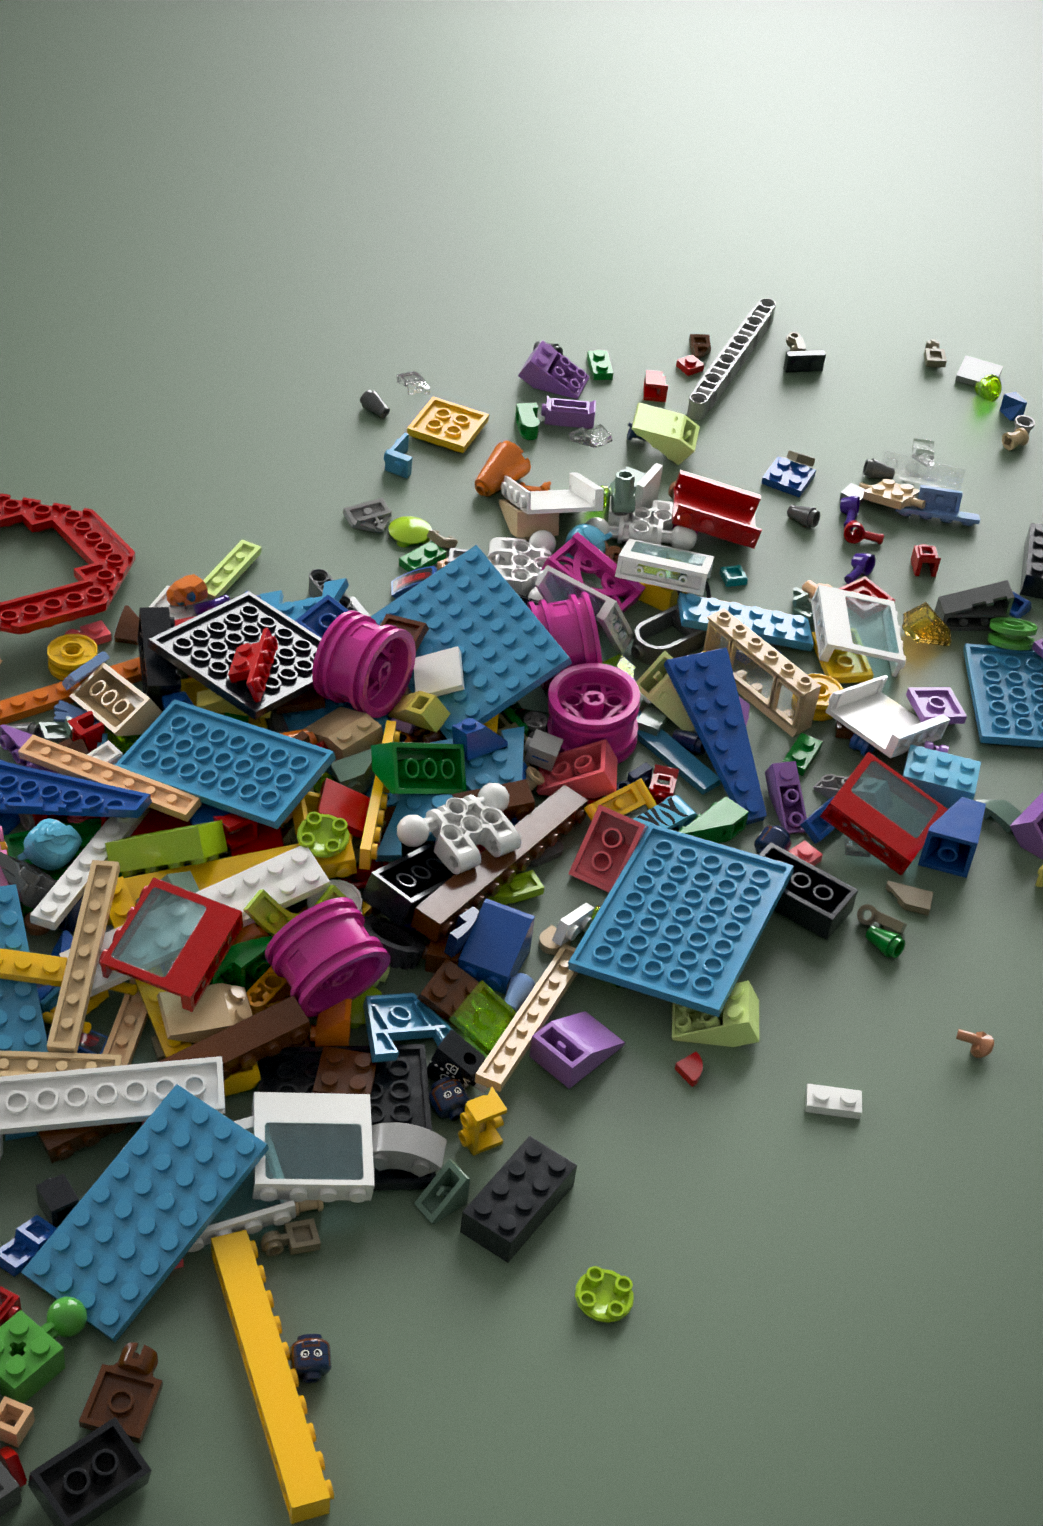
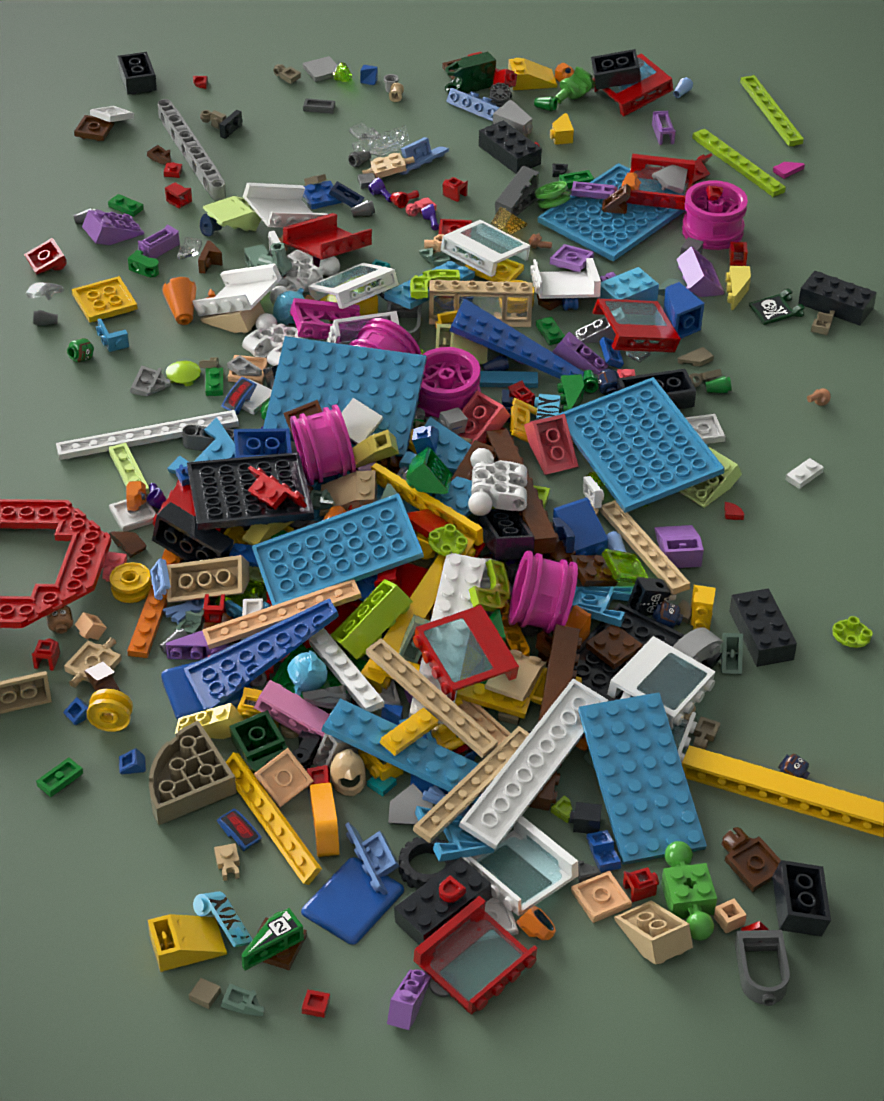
camera: 45 degrees left, 0 degrees up
(69, 1168) = (562, 809): none -> lime tile
(290, 554) = (140, 435): none -> white plate
(314, 716) = (321, 500): none -> sand green slope
(356, 448) = (80, 350): none -> green head
(457, 358) = (46, 257): none -> red slope
(589, 452) = (208, 256): none -> reddish brown slope
(679, 285) = (93, 128): none -> reddish brown plate
(710, 283) = (111, 113): none -> white tile
(722, 453) = (278, 203): none -> white panel
(745, 612) = (420, 284): none -> lime plate
(754, 826) = (590, 381): none -> green cone
(788, 264) = (137, 73): none -> black brick
(798, 968) = (707, 428): none -> white tile
(801, 490) = (346, 195): none -> dark blue tile
(844, 311) = (200, 81): none -> red tile
(853, 547) = (414, 209): none -> coral plate
(920, 402) = (319, 106): none -> dark grey tile
(925, 663) = (535, 241): none -> nougat plate

